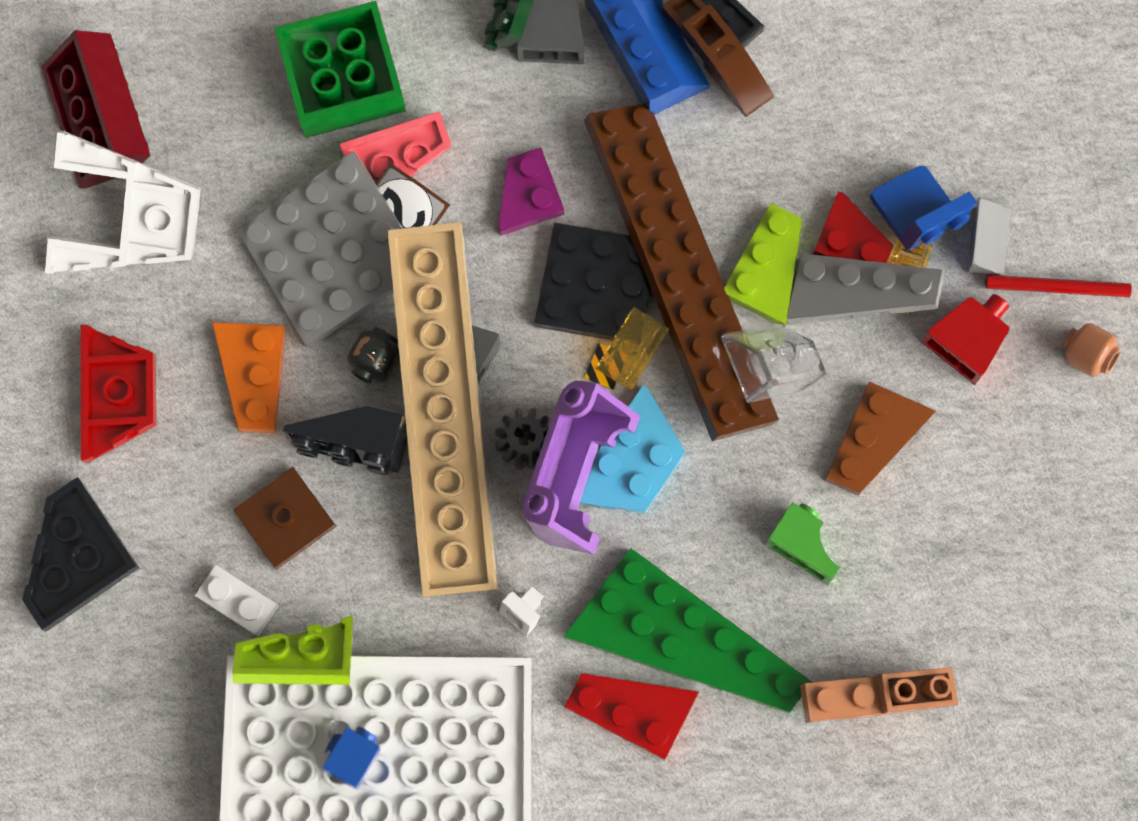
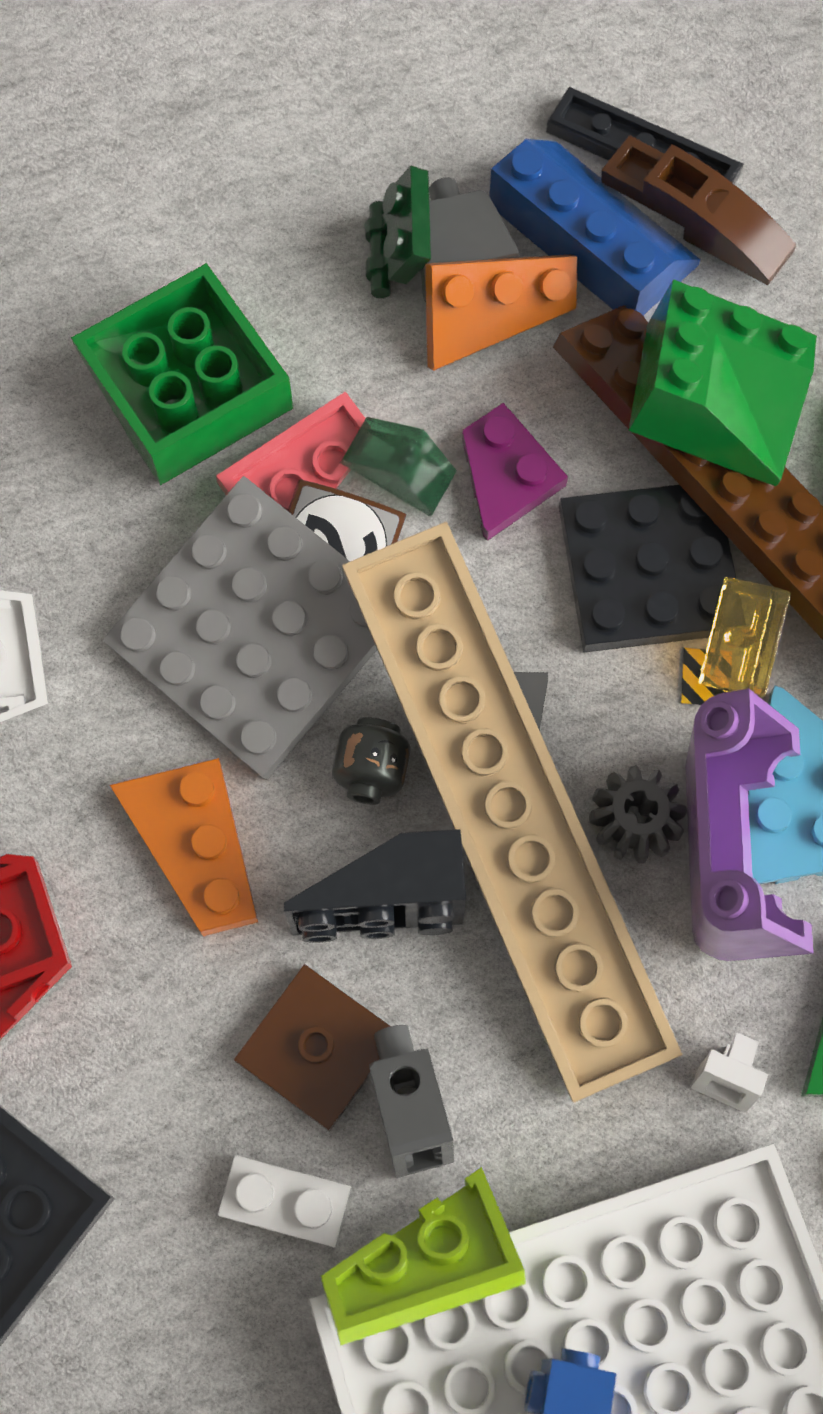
camera: 20 degrees left, 5 degrees down
(323, 568) = (414, 1122): none -> dark grey torso
(459, 170) = (401, 462): none -> clear green slope
(558, 76) = (492, 300): none -> orange wing
(679, 179) = (722, 382): none -> green slope

